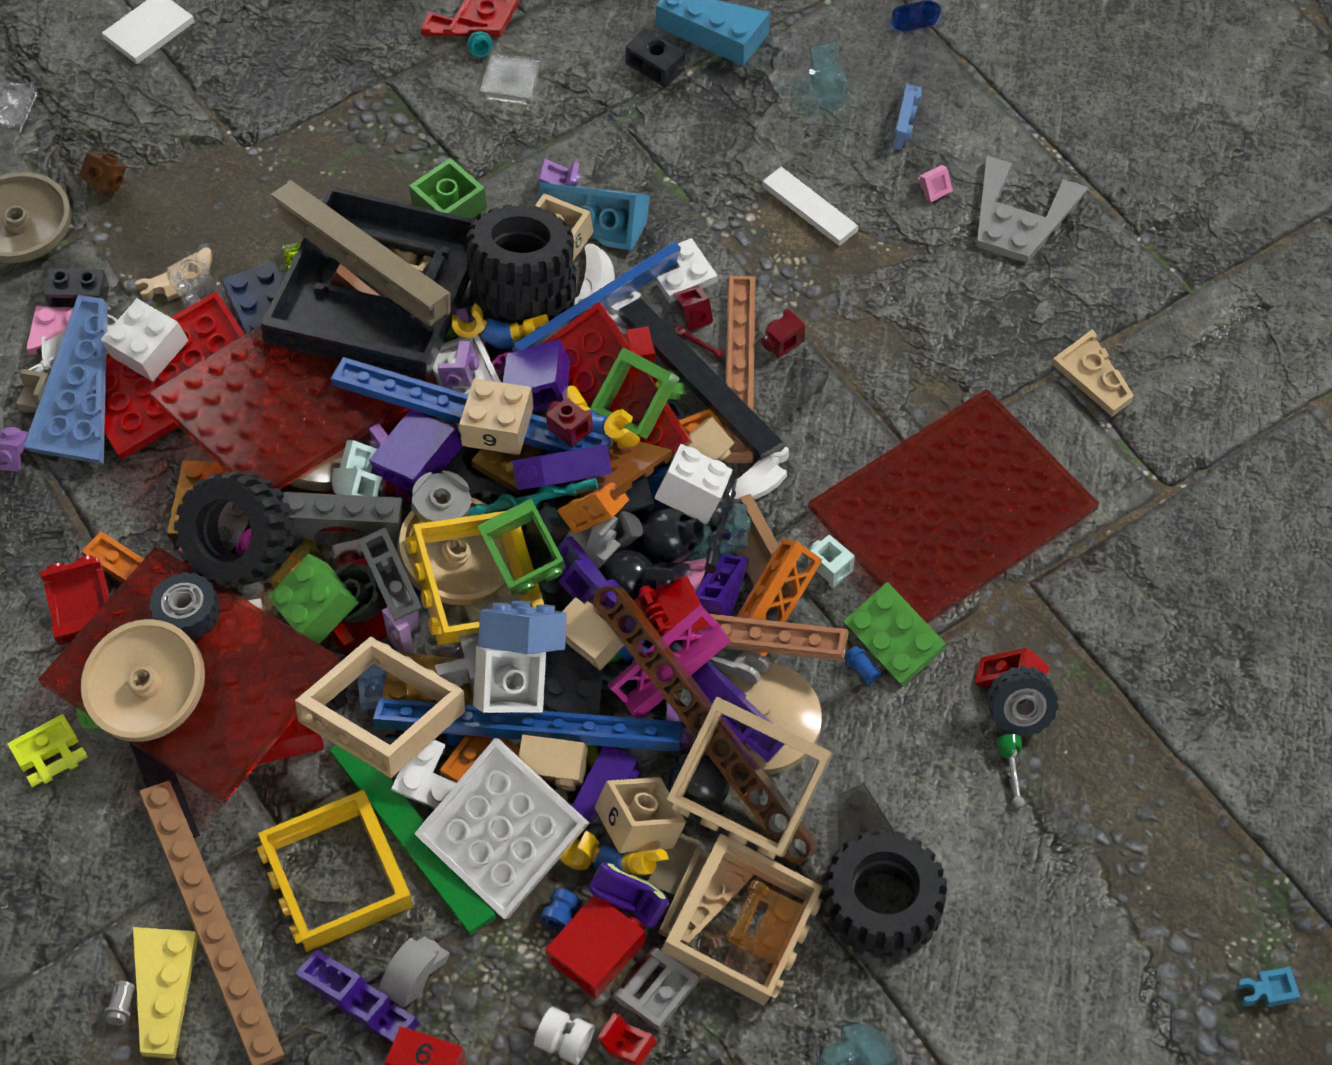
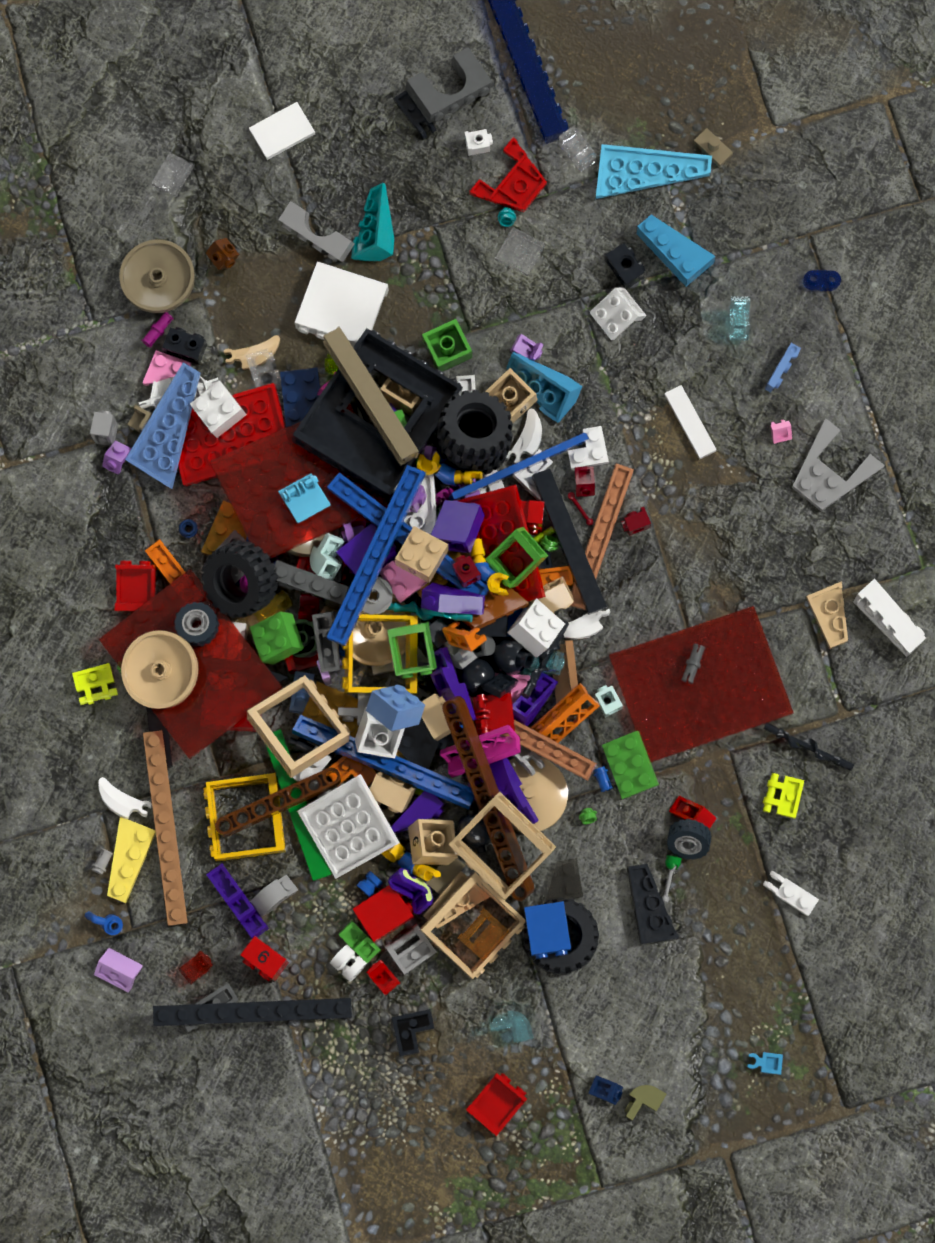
camera: 20 degrees right, 20 degrees up
(32, 282) = (157, 329): none -> magenta pin
(130, 907) = (120, 802): none -> white piece
(140, 503) = (186, 523): none -> dark blue plate
(255, 126) = (298, 220): none -> light grey arch
(266, 169) = (340, 300): none -> white panel
(301, 400) = (304, 498): none -> medium azure hinge
(308, 99) = (376, 232): none -> teal wedge
(376, 837) = (285, 794): none -> reddish brown beam
(429, 441) = (376, 555): none -> blue plate
(480, 469) = (402, 582): none -> bright pink wing
(566, 997) = (359, 941): none -> bright green slope
(663, 110) = (617, 312): none -> white bracket
(859, 720) = (588, 816): none -> bright green plate
(863, 876) = (547, 929): none -> blue brick
(933, 477) = (693, 663): none -> dark grey pin
(1007, 831) = (649, 909): none -> black wing
(1138, 538) = (809, 744): none -> black piece
(1140, 612) = (789, 798): none -> neon yellow plate
(1175, 351) = (889, 618): none -> white wedge
(1199, 740) = (792, 894): none -> white hinge

